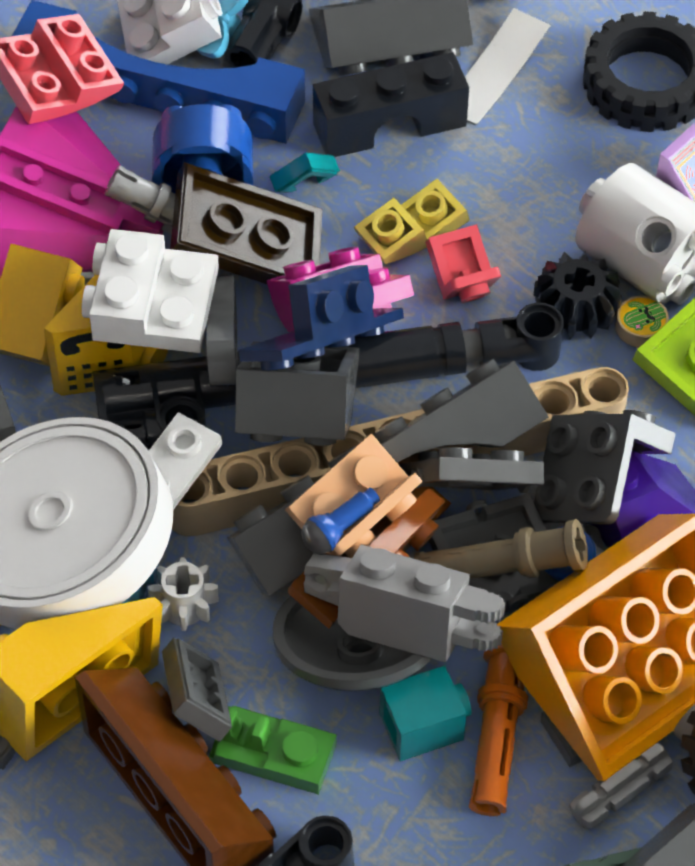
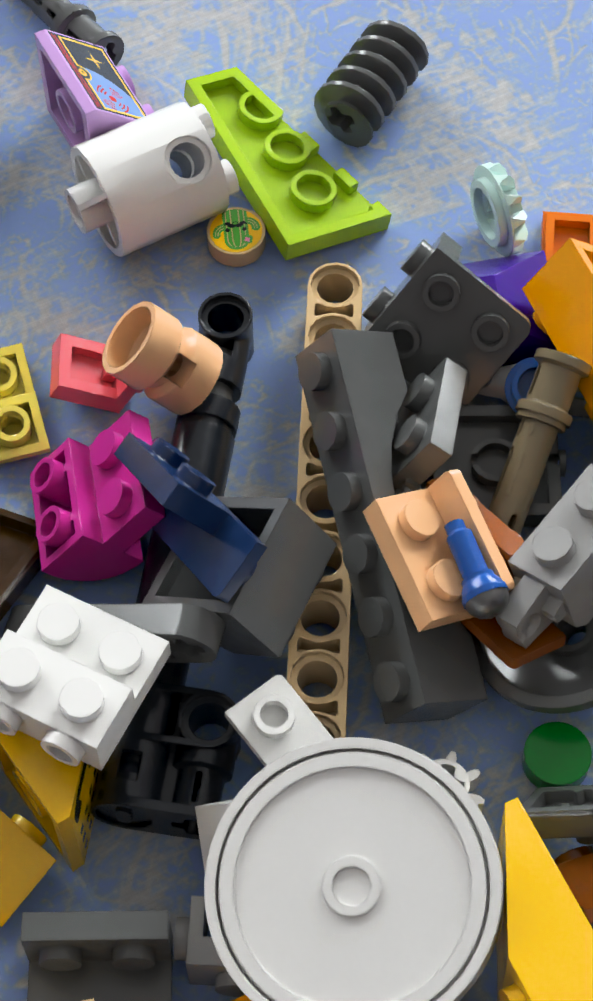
camera: 70 degrees left, 5 degrees up
(251, 672) = (556, 755): none -> green tile
(468, 284) = (161, 357): none -> light nougat wheel
(581, 292) = (185, 273): black gear -> none

